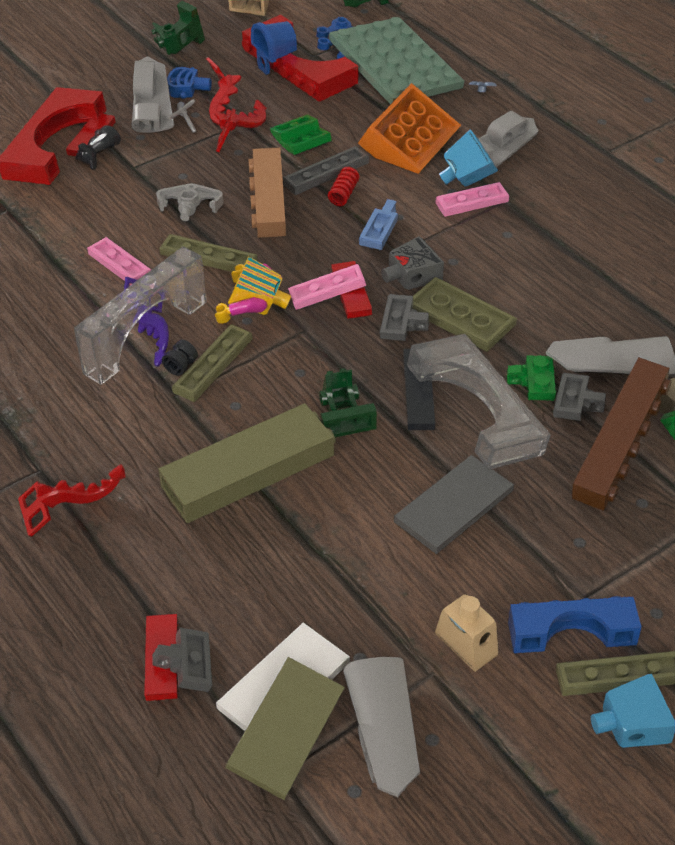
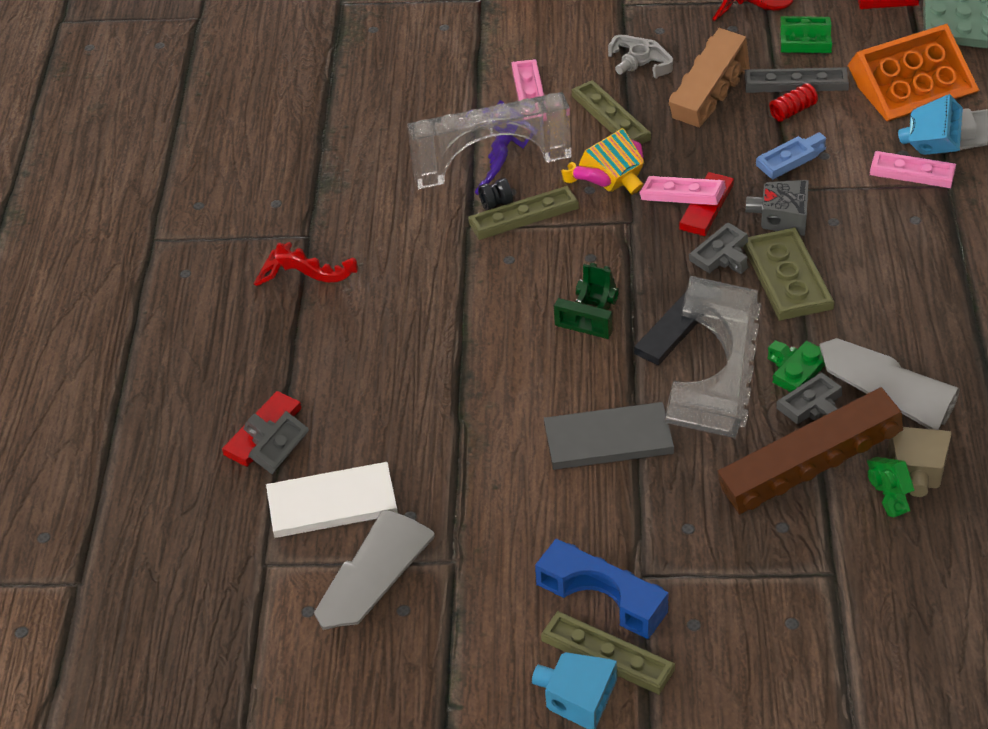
camera: 40 degrees right, 0 degrees up
(246, 462) = (467, 310): olive brick -> none
(285, 728) = (296, 531): olive tile -> none
(469, 631) = (503, 530): tan torso -> none

